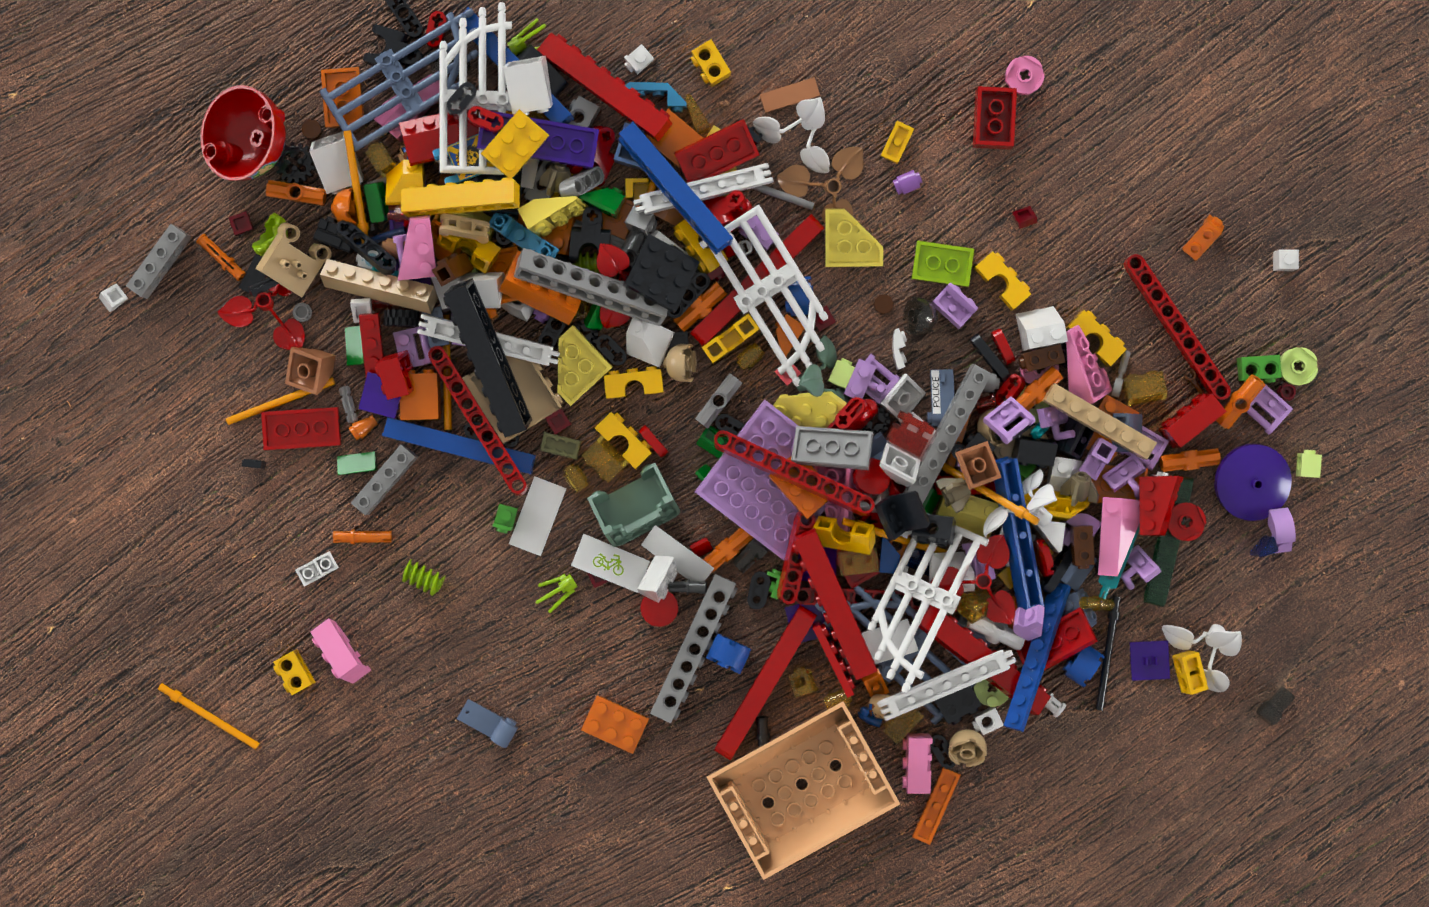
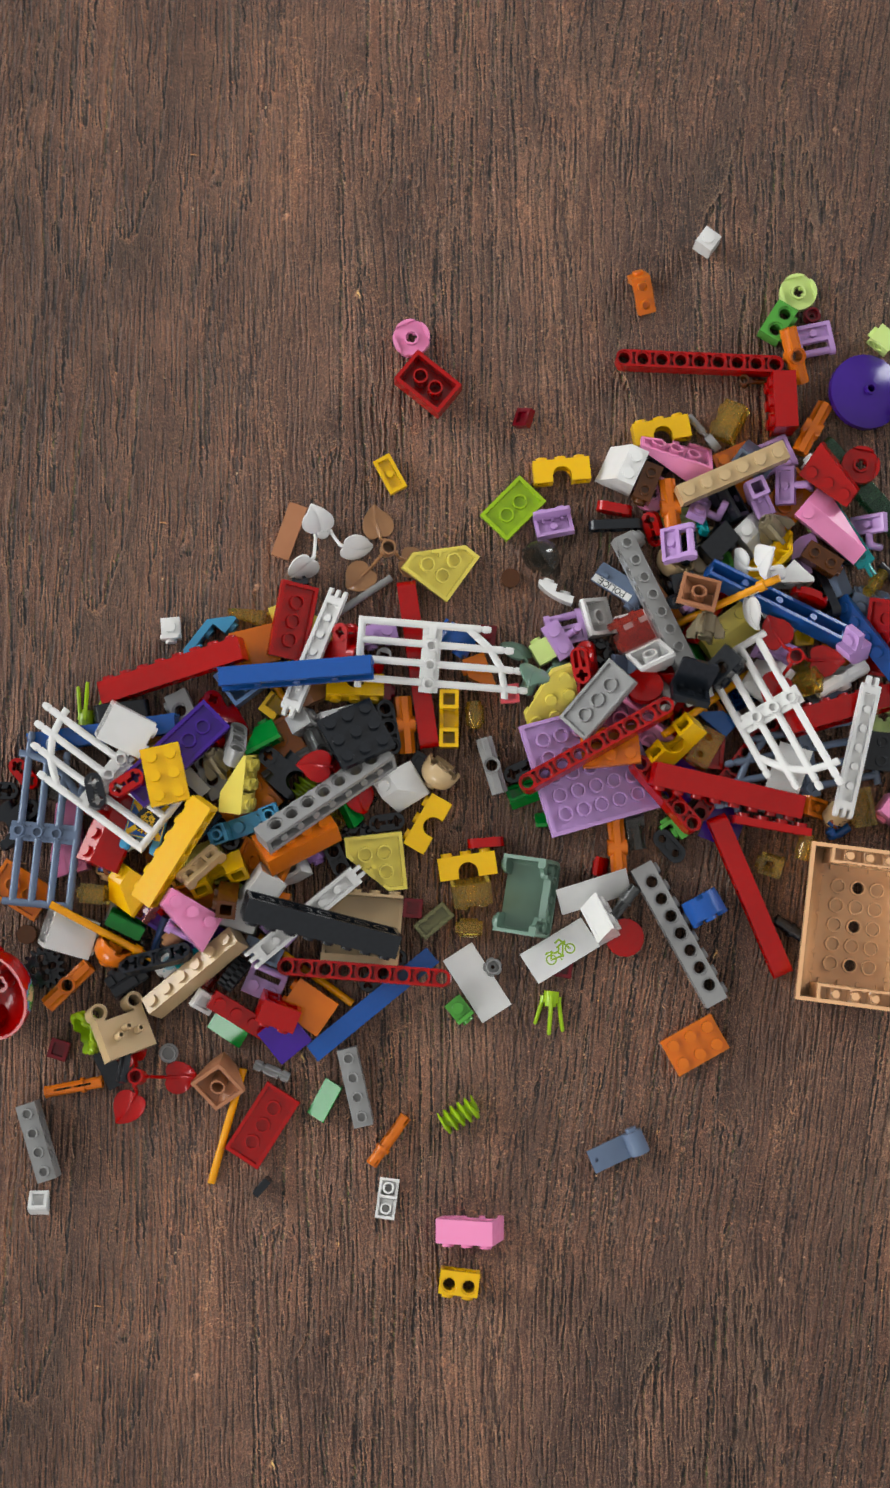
camera: 55 degrees left, 5 degrees down
(176, 696) = (406, 1397): light orange bar -> none
(363, 427) = (299, 1073): orange cone -> none
(563, 519) = (497, 967): none -> light grey plate
(715, 61) = (218, 570): yellow brick -> none
(907, 182) = (427, 489): medium lavender brick -> none
(986, 403) = (650, 554): clear red bush -> none

